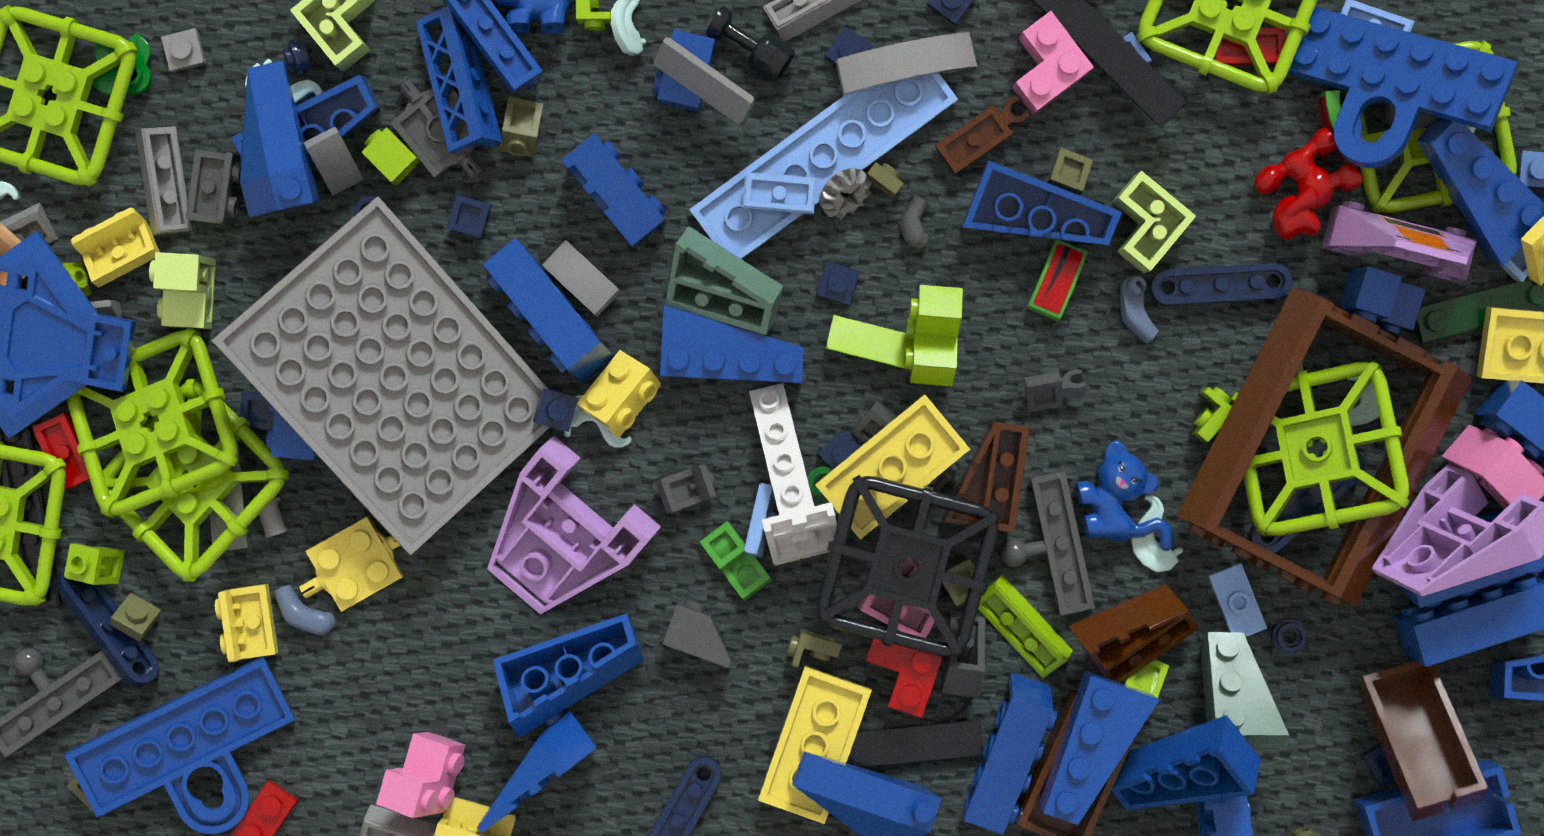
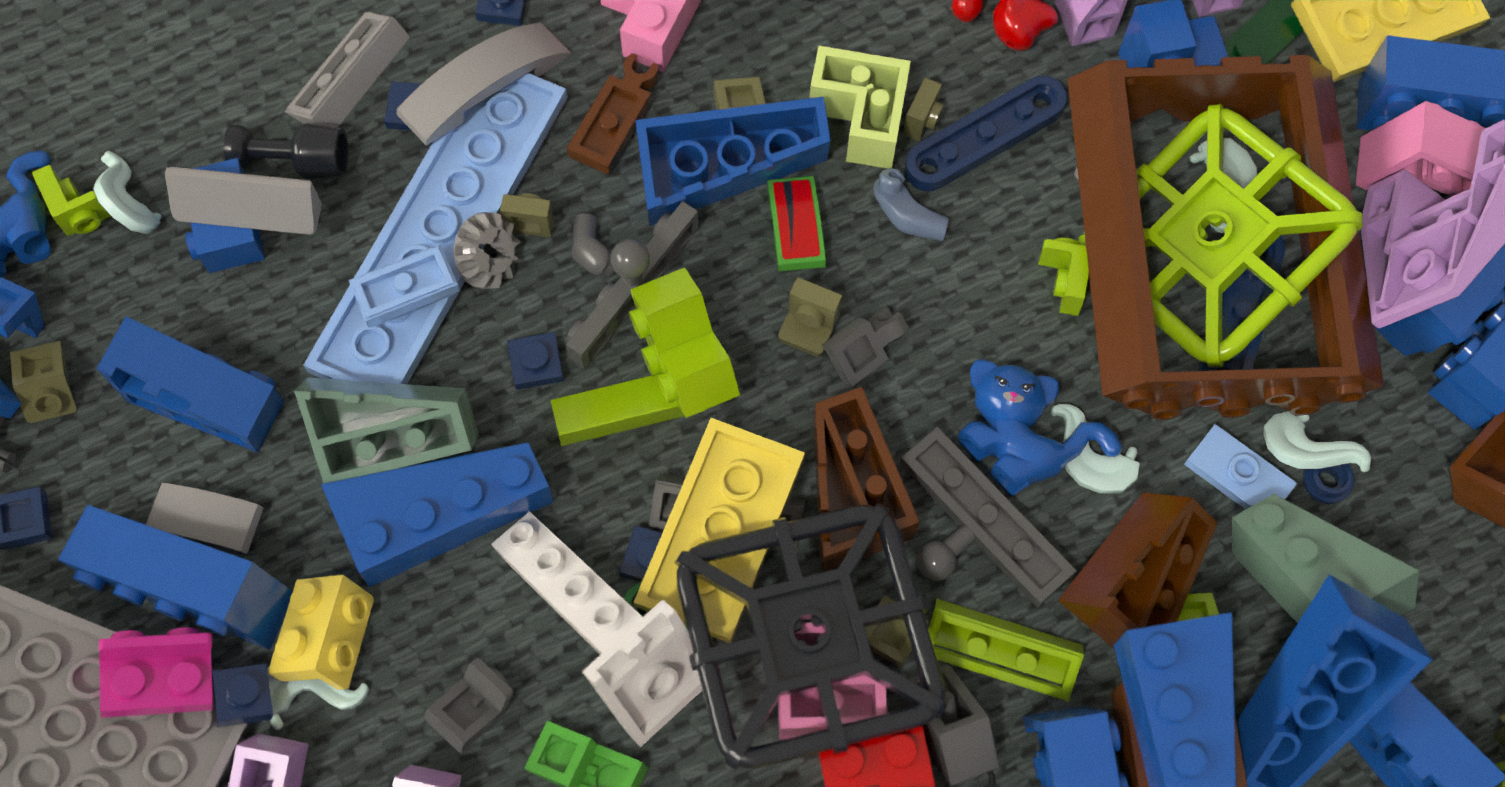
camera: 30 degrees left, 20 degrees down
(511, 375) = (155, 673): none -> dark pink bracket
(762, 509) = (593, 711): light blue plate -> none
(928, 266) = (636, 266): none -> dark grey plate
(1025, 355) = (810, 317): none -> olive bracket
(1189, 247) = (924, 110): none -> olive plate
(1278, 607) = (1290, 445): none -> light aqua piece

